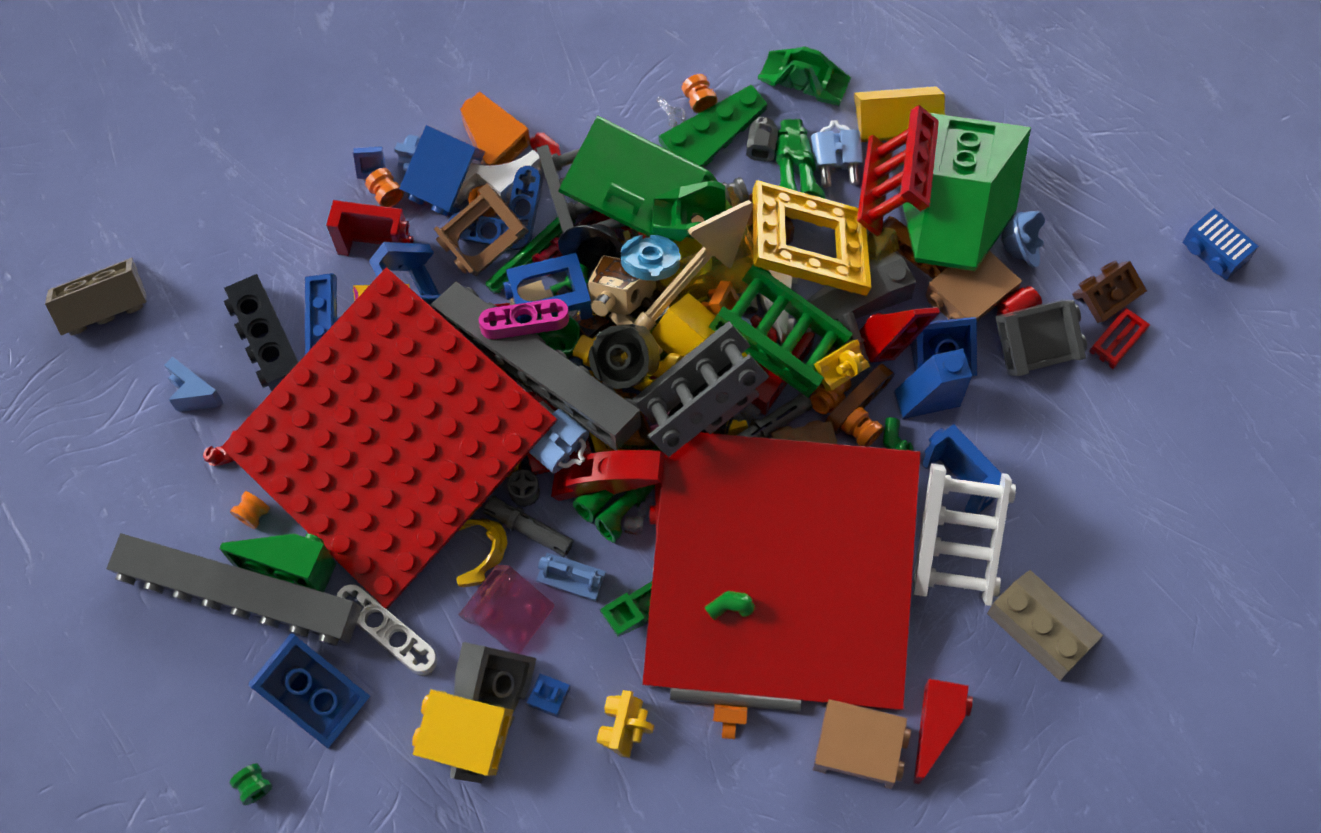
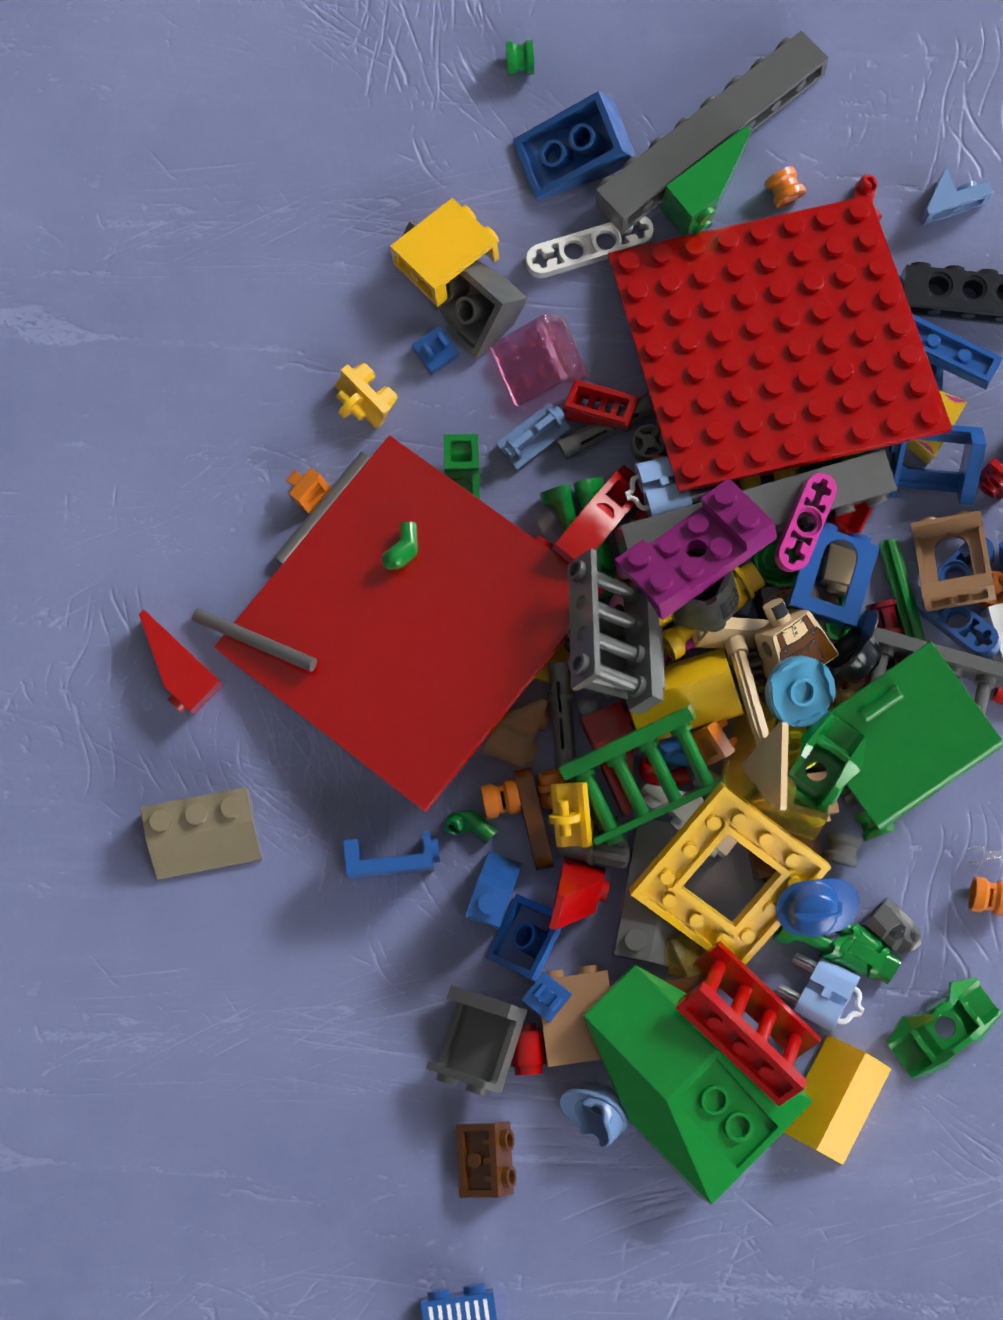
camera: 115 degrees right, 15 degrees up
(497, 535) = (590, 354): yellow helmet -> none
(506, 537) = (584, 390): none -> red slope
(568, 357) = (725, 526): none -> magenta piece
(715, 127) = (937, 876): green wing -> none
(790, 176) = (817, 906): none -> blue piece
(862, 743) = (206, 585): medium nougat panel -> none
(875, 661) = (254, 639): none -> dark grey bar
(936, 515) = (355, 788): white fence -> none
(979, 304) = (546, 996): none -> blue tile
(1106, 354) = (422, 1101): red tile -> none

